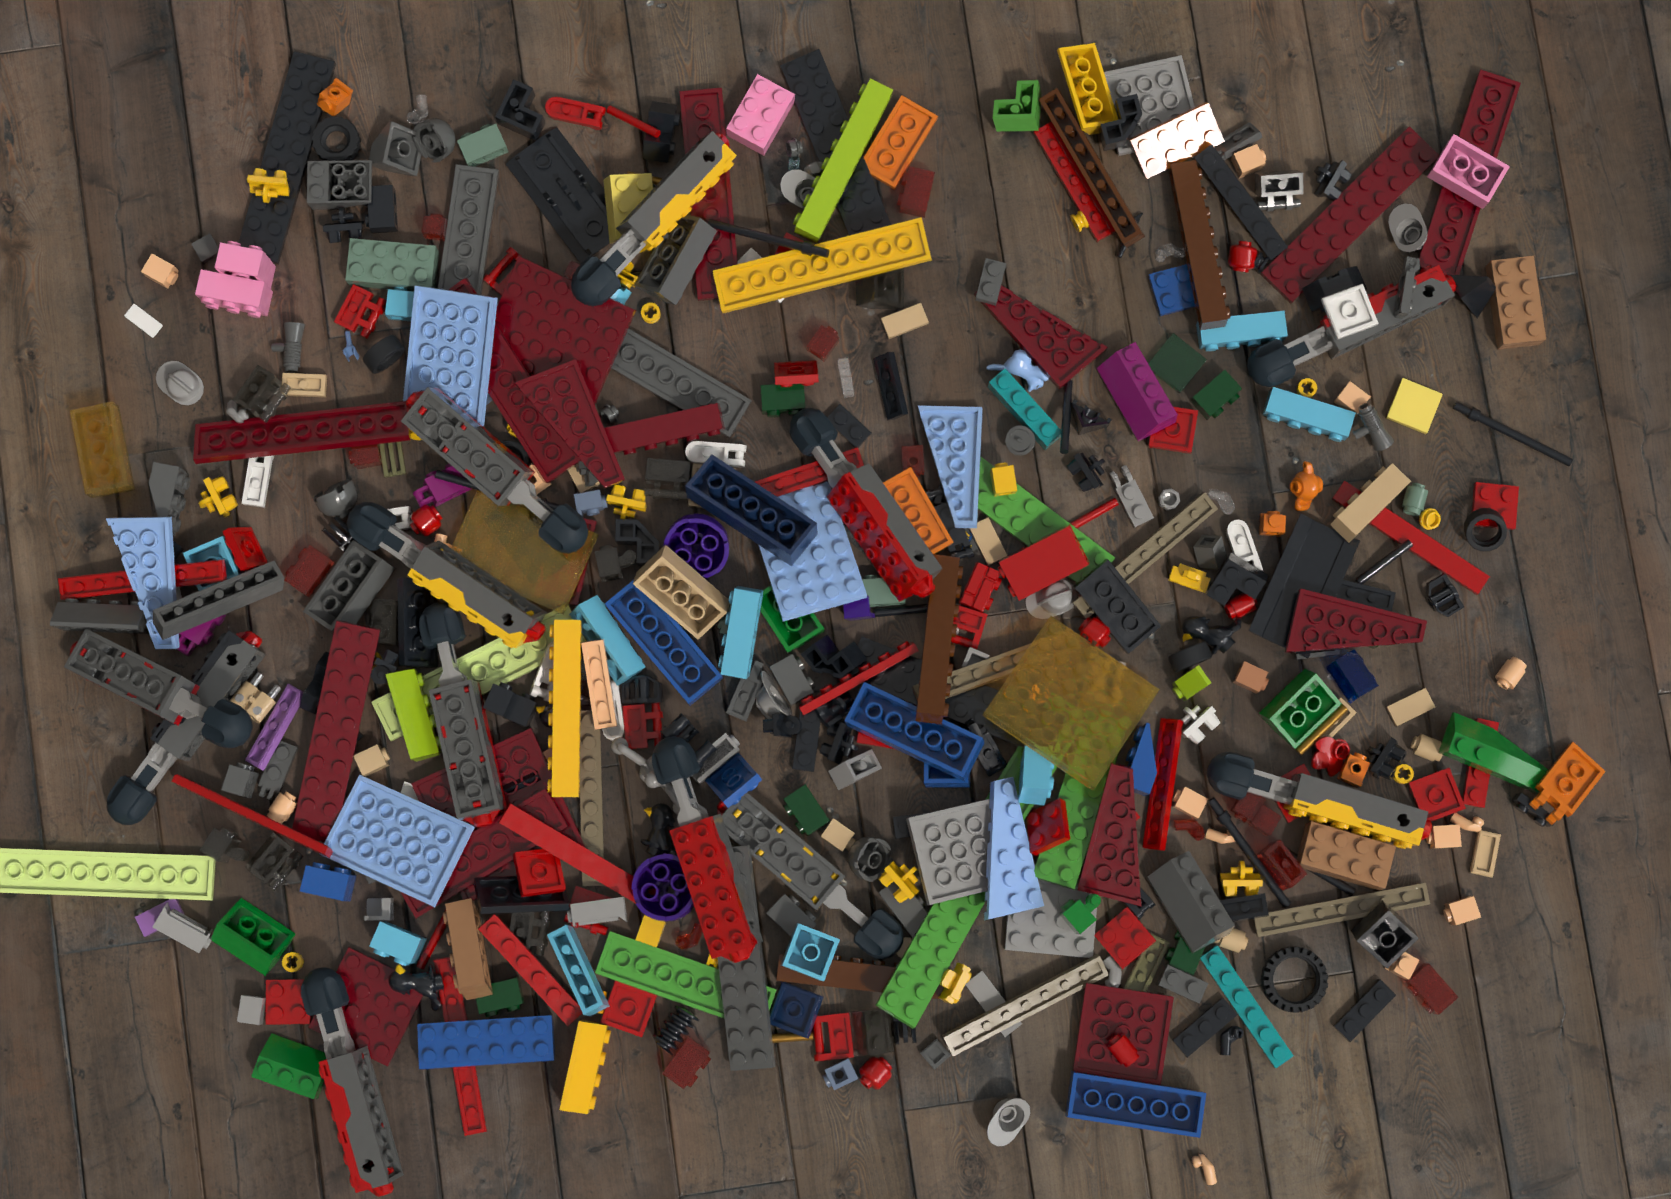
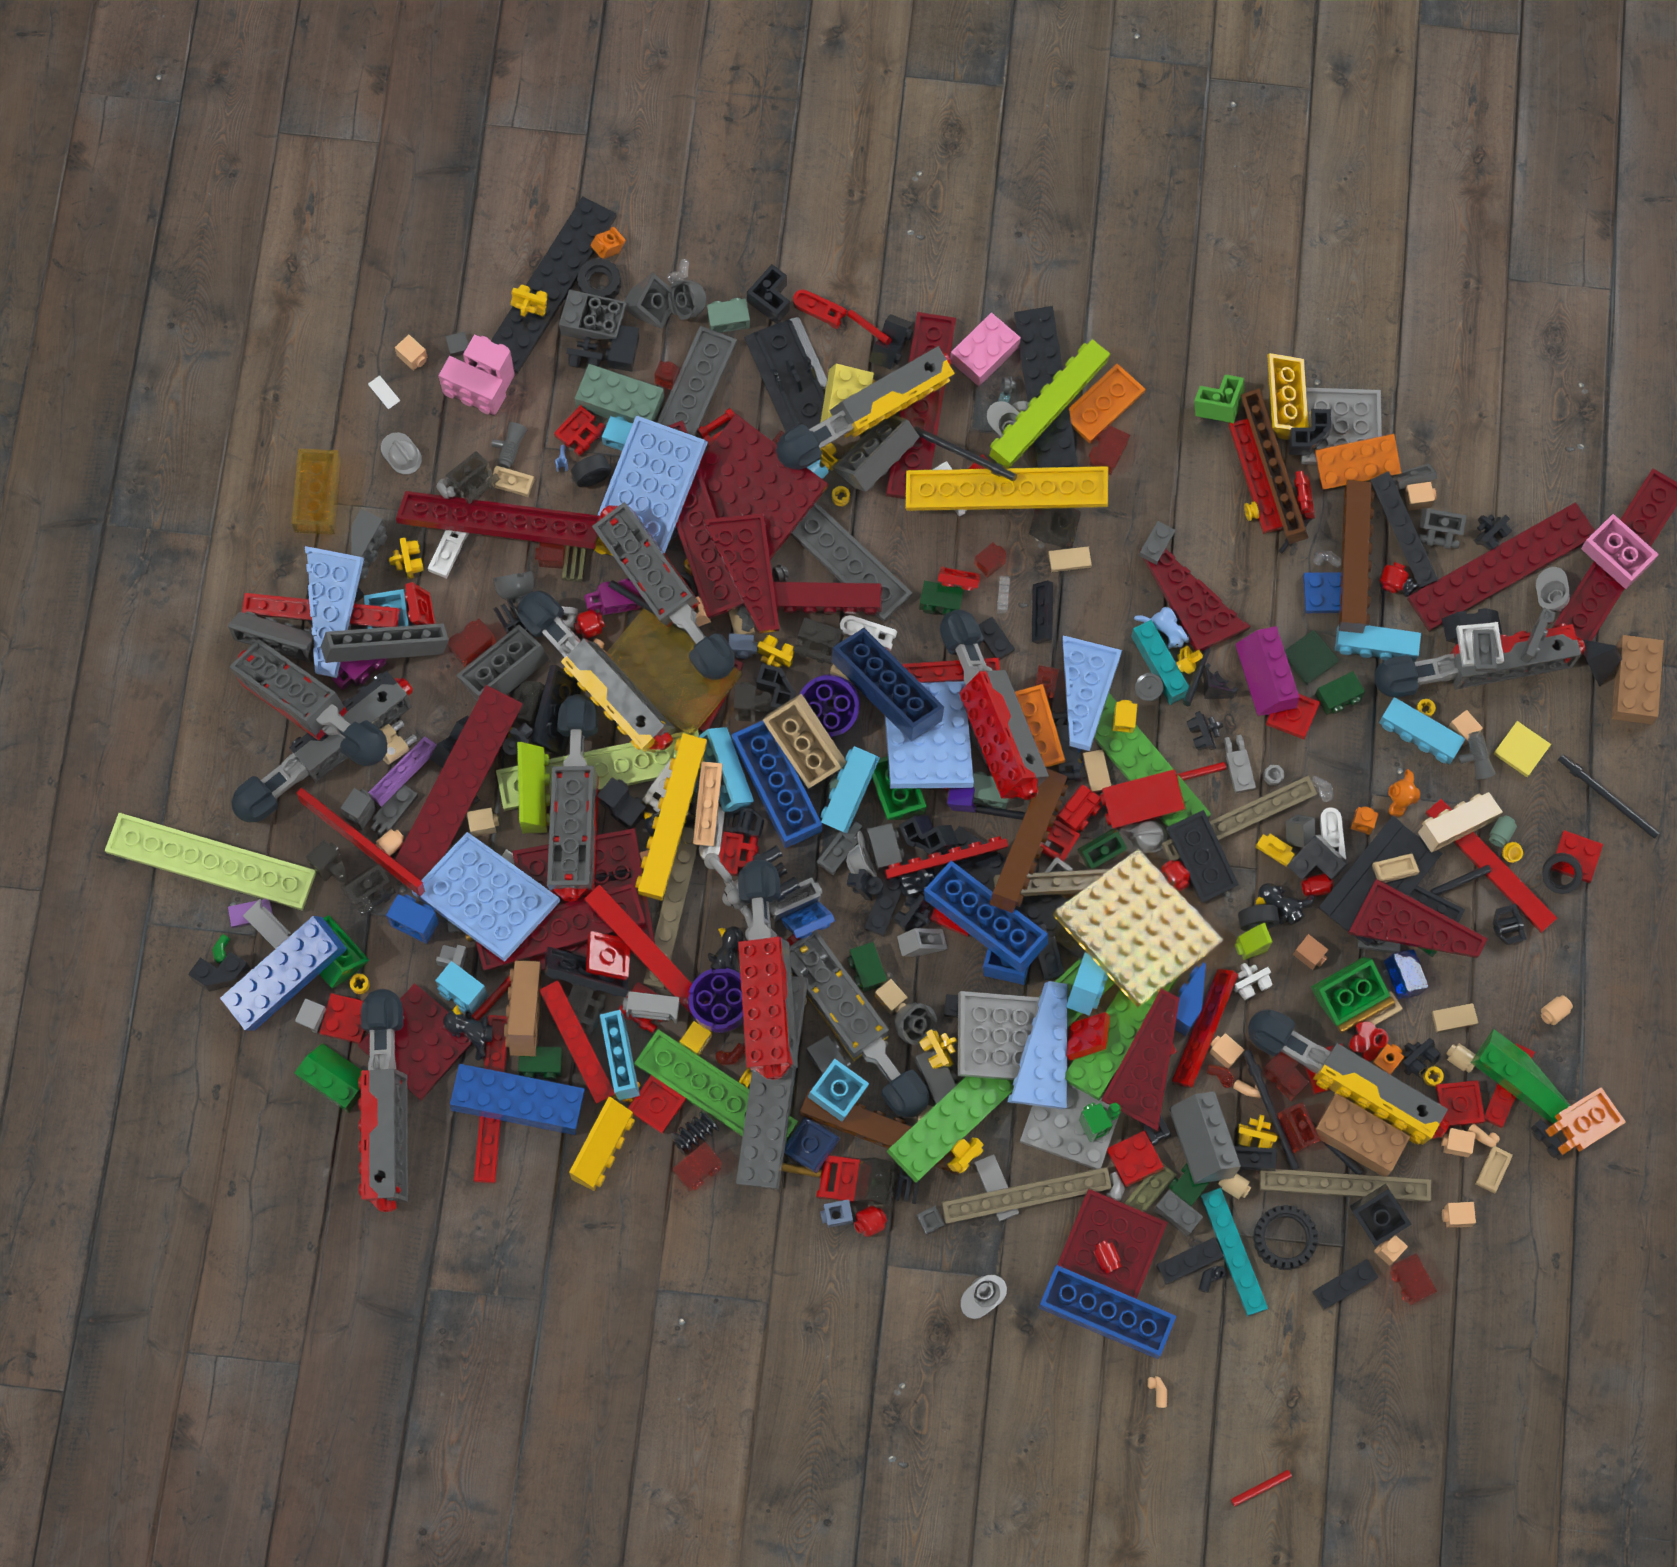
camera: 15 degrees right, 10 degrees down
(138, 965) = (218, 948): none -> green arm
(155, 987) = (227, 974): none -> black brick
(211, 977) = (283, 973): none -> brick
(1014, 624) = (1102, 848): none -> dark green brick
(1053, 400) = (1188, 659): none -> yellow piece
(1130, 189) = (1304, 496): none -> red plate
(1316, 569) = (1395, 868): none -> tan tile
(1356, 319) = (1484, 650): none -> dark grey plate

